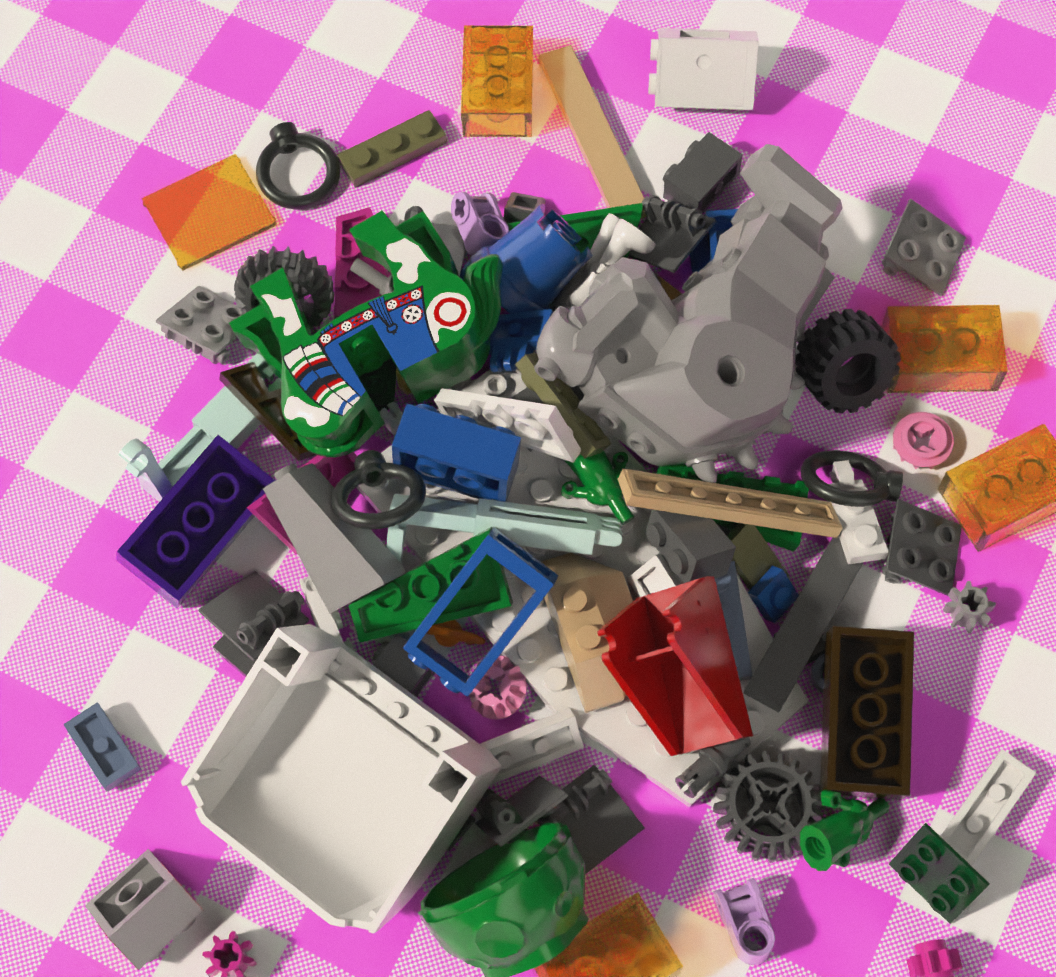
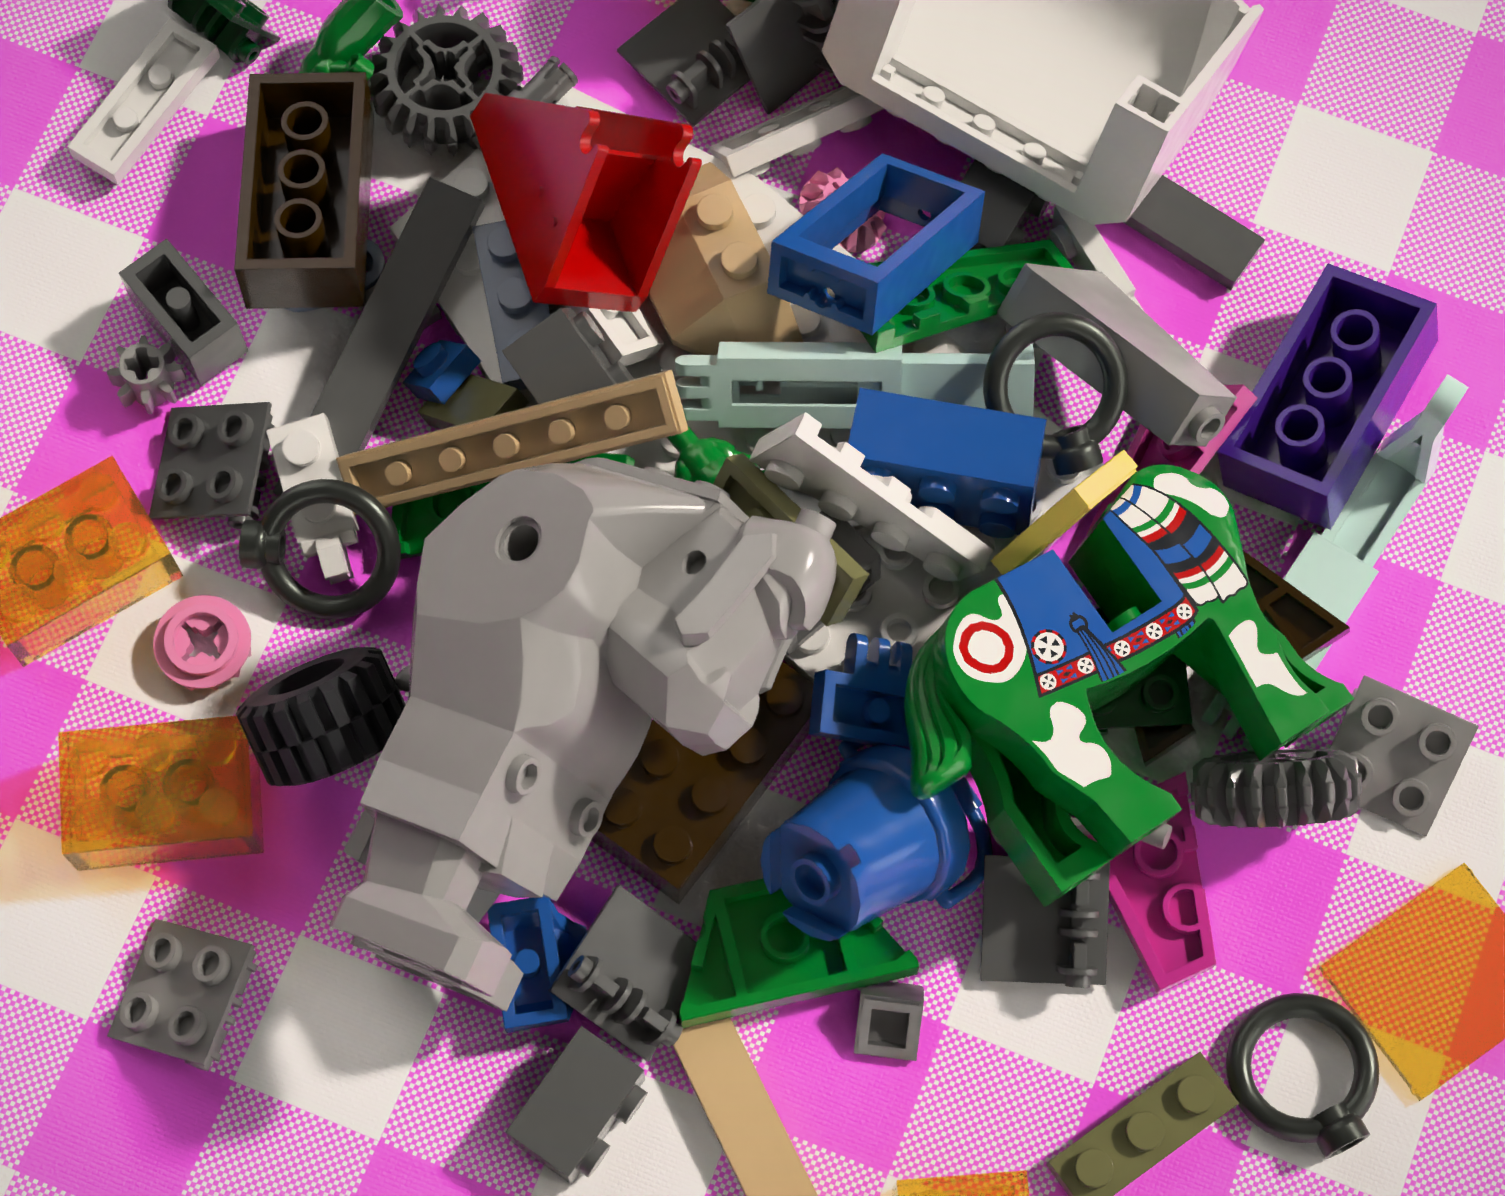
camera: 170 degrees right, 5 degrees up
(102, 747) = (1388, 93): sand blue plate -> none
(252, 613) = (1214, 281): dark grey hinge -> none
(382, 404) = (1065, 513): none -> light yellow tile
(478, 220) = (964, 975): lavender piece -> none
(611, 244) = (721, 929): white piece -> none
(947, 639) = (184, 311): none -> dark grey brick

